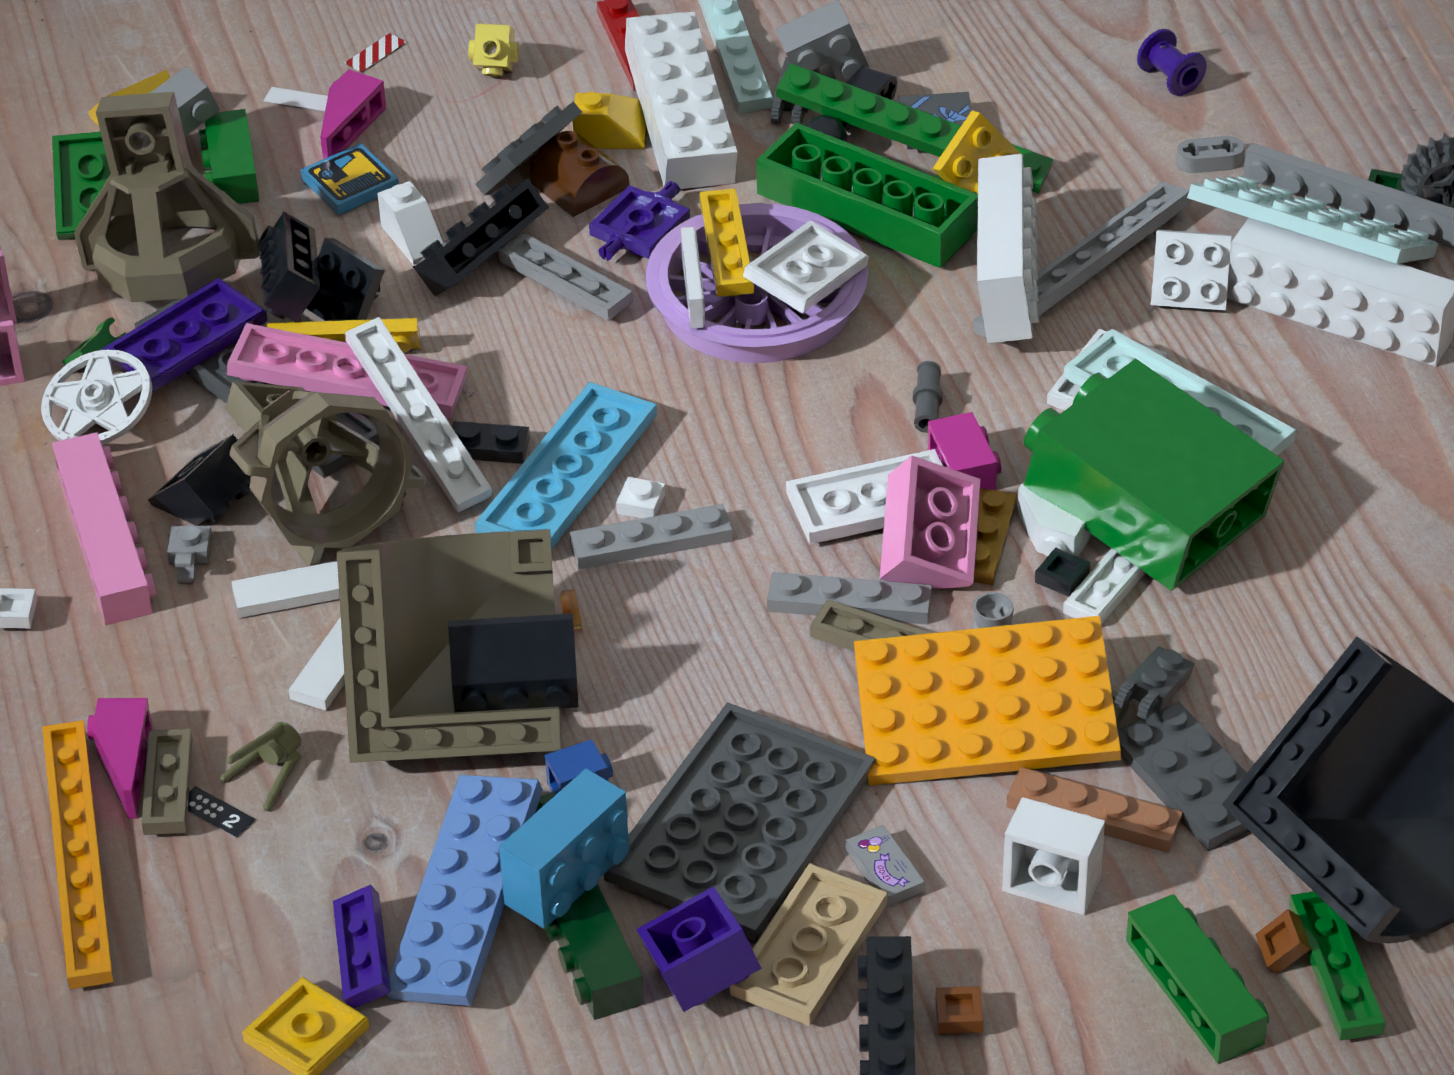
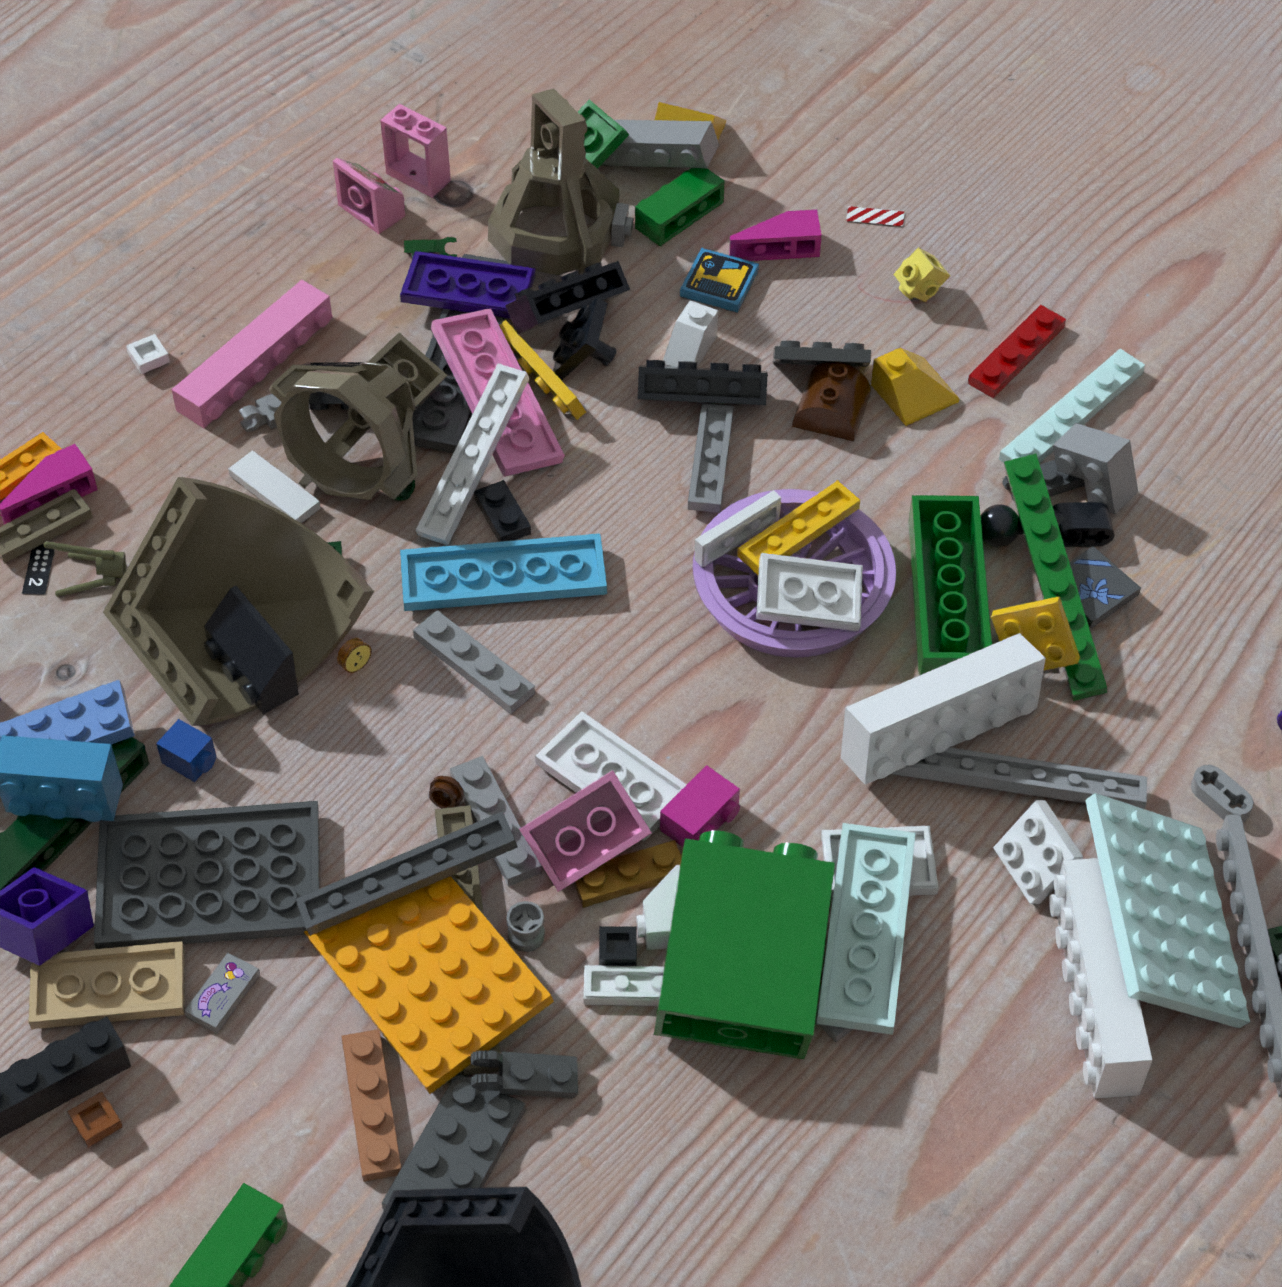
camera: 55 degrees right, 10 degrees up
(97, 396) = (370, 277): white wheel -> none
(296, 99) = (783, 198): white sticker -> none
(638, 220) = (808, 463): dark purple plate -> none
(640, 498) = (509, 633): white plate -> none
(680, 100) = (954, 413): white brick -> none
(795, 611) = (445, 792): none -> reddish brown plate
(886, 656) = (406, 873): none -> dark grey plate
(927, 394) = (754, 751): dark grey pin -> none
(1053, 855) = (275, 1098): white brick -> none

